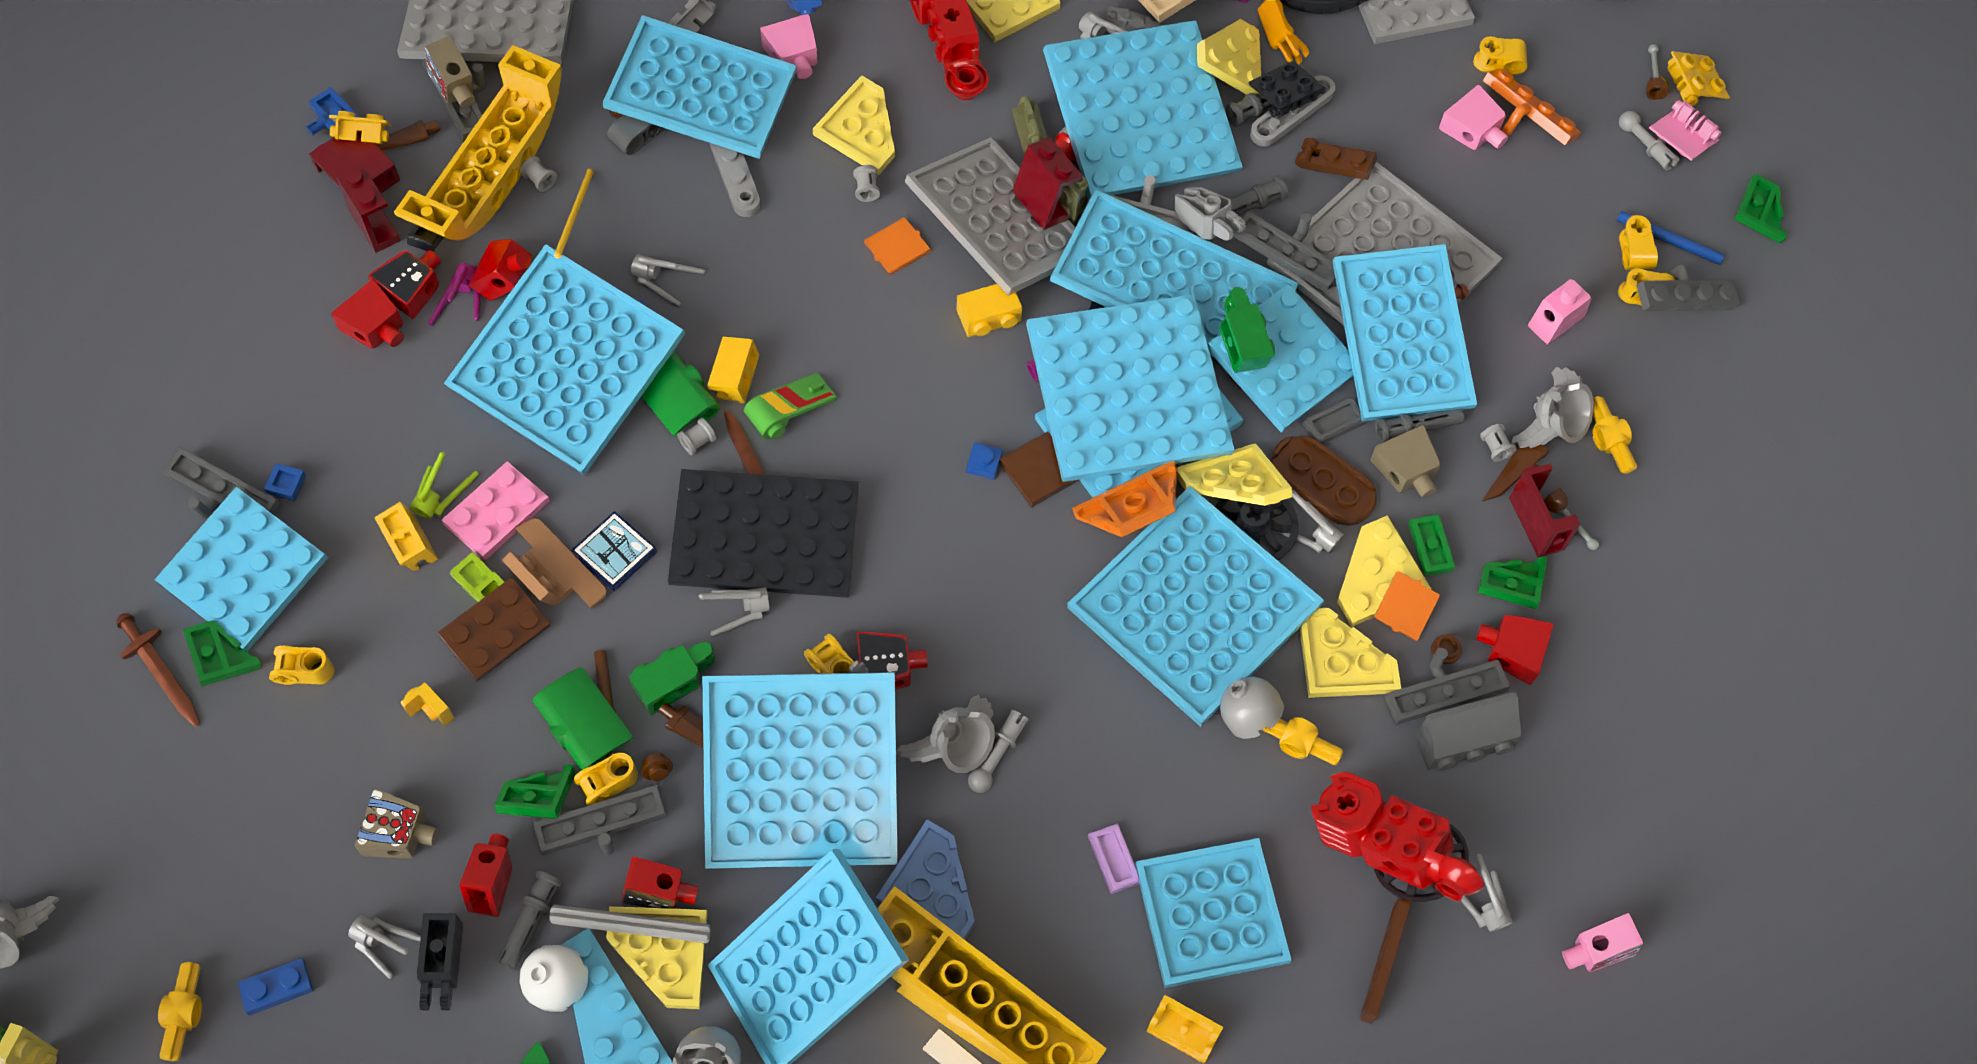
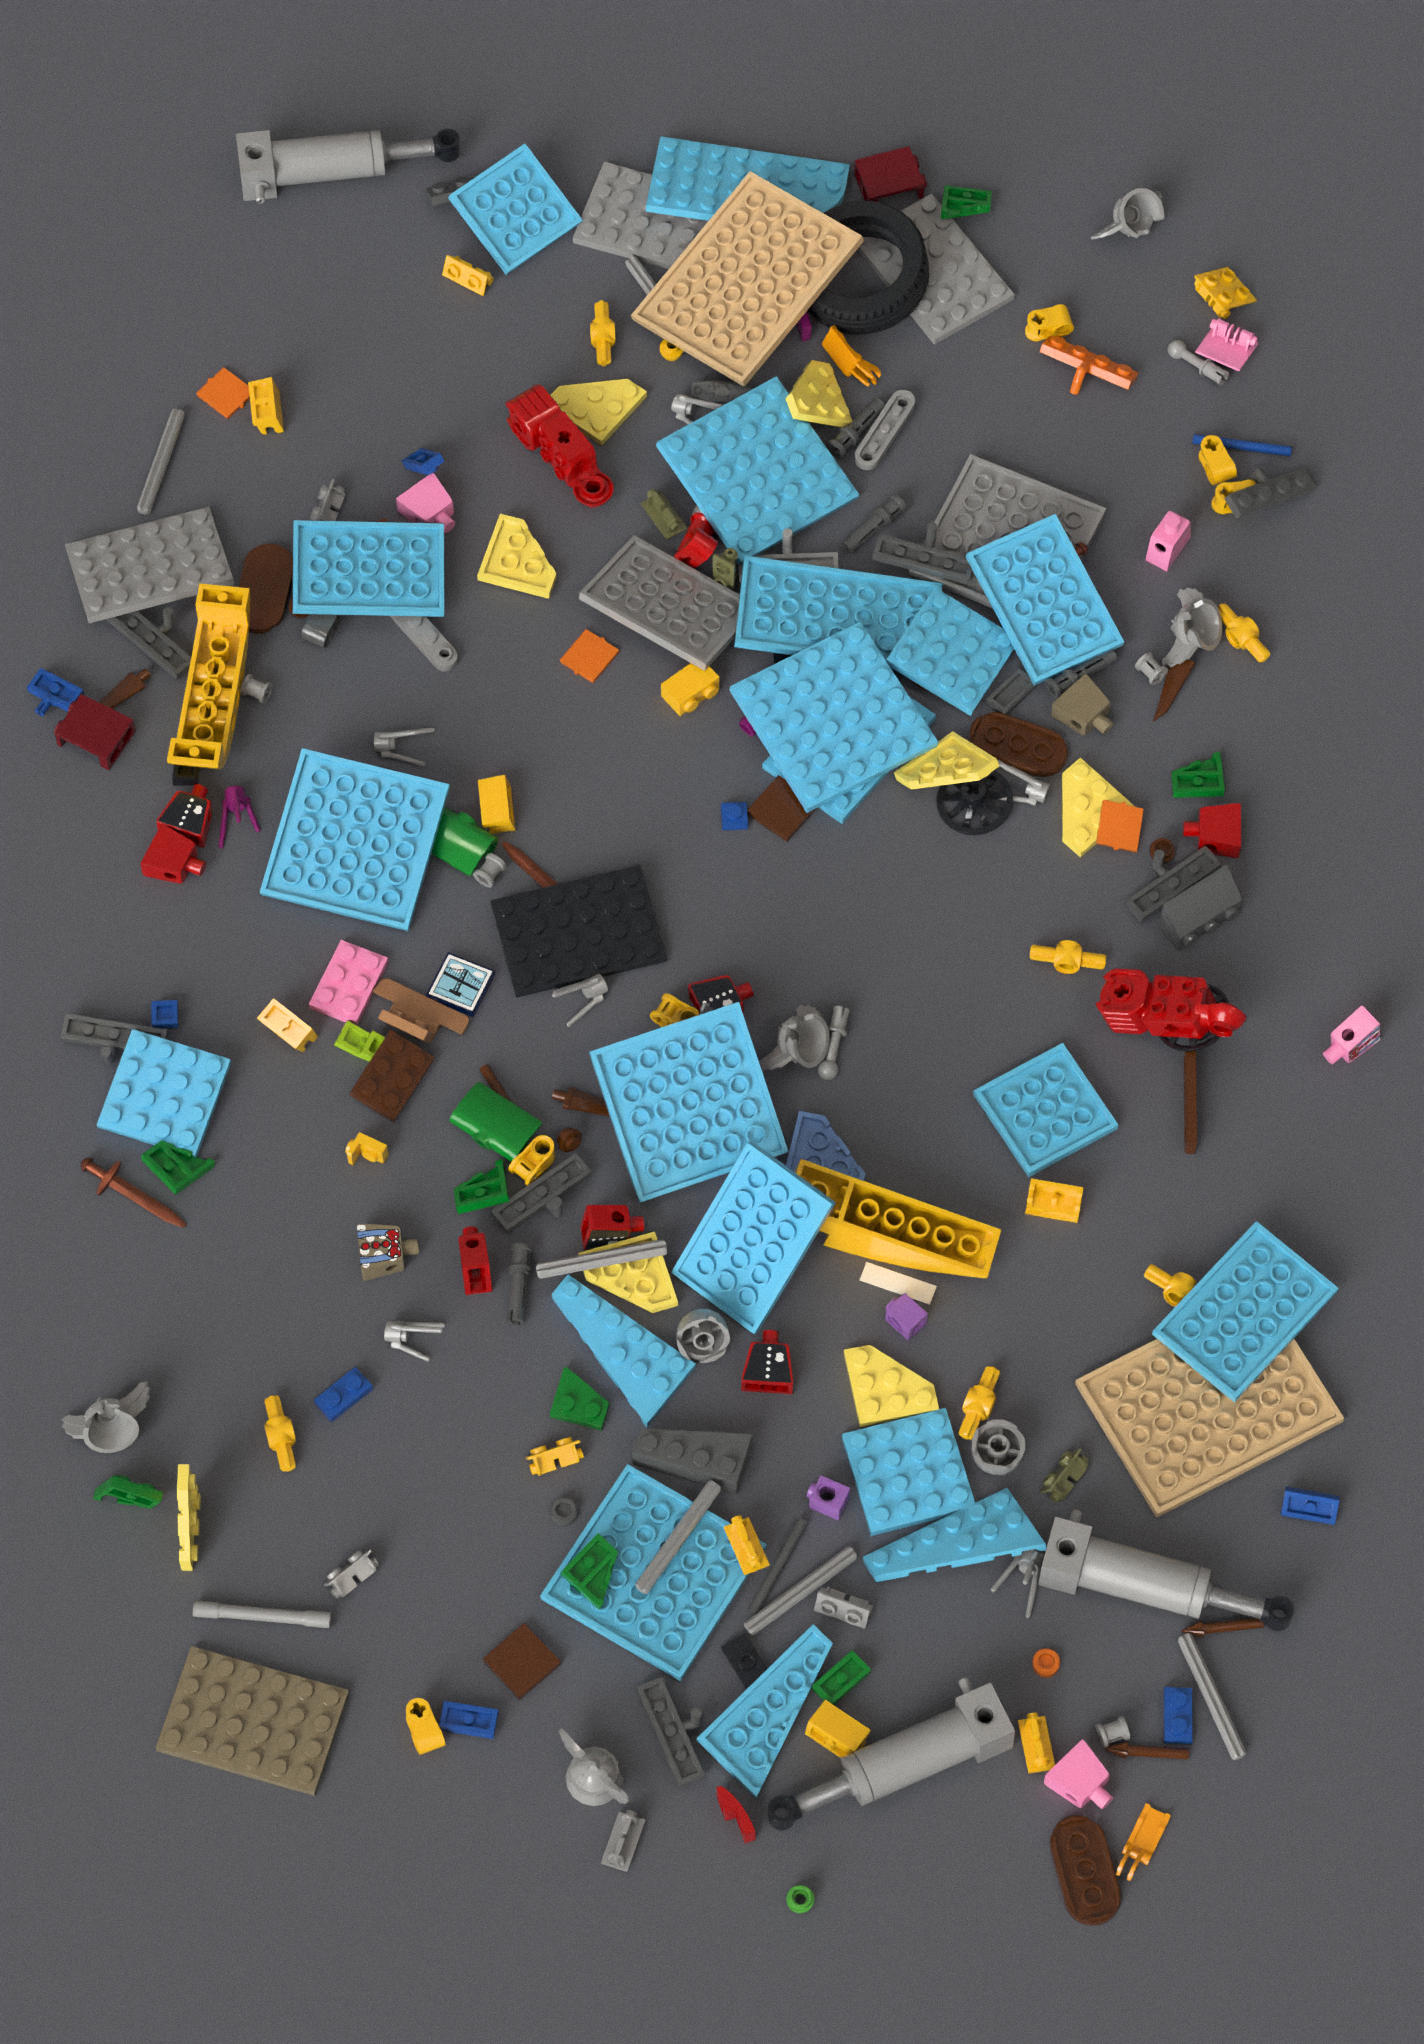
camera: 15 degrees left, 0 degrees up
(295, 664) = (247, 1153): yellow piece -> none
(348, 125) = (80, 698): yellow hinge -> none
(367, 207) = (127, 763): dark red panel -> none
(426, 500) = (289, 994): lime plant -> none
(439, 957) = (464, 1329): black hinge -> none
(449, 72) = (147, 624): dark tan torso -> none
(500, 268) = (266, 780): red torso -> none
(553, 977) = (558, 1317): white cylinder -> none
(574, 212) = (308, 713): yellow axle -> none
(589, 78) = (269, 577): none -> reddish brown tile
(671, 675) = (550, 1067): green hinge -> none
(774, 408) = (547, 824): bright green door -> none
(866, 183) = (543, 609): light grey bush -> none
(1041, 181) = (700, 563): dark red panel -> none
(1114, 858) = (955, 1095): lavender tile -> none
(1133, 502) = (871, 812): orange wing -> none
(1195, 605) = (949, 878): medium azure plate -> none
(1208, 214) = (846, 547): light grey hinge -> none
(1245, 333) = (915, 642): green hinge -> none
(1250, 706) = (1022, 944): light grey cylinder -> none
(1287, 88) = (874, 412): black hinge -> none
(1336, 159) = (937, 463): reddish brown plate -> none
(1343, 659) = (1081, 884): light yellow plate -> none
(1431, 545) = (1123, 770): green plate -> none
(1475, 120) = (1045, 390): bright pink torso -> none
(1496, 912) = (1263, 1041): light grey plant -> none
(1543, 532) = (1211, 732): dark red panel -> none
(1557, 503) = (1214, 704): reddish brown hinge -> none
(1656, 81) = (1191, 310): reddish brown hinge -> none
(1761, 208) = (1310, 395): green wing -> none

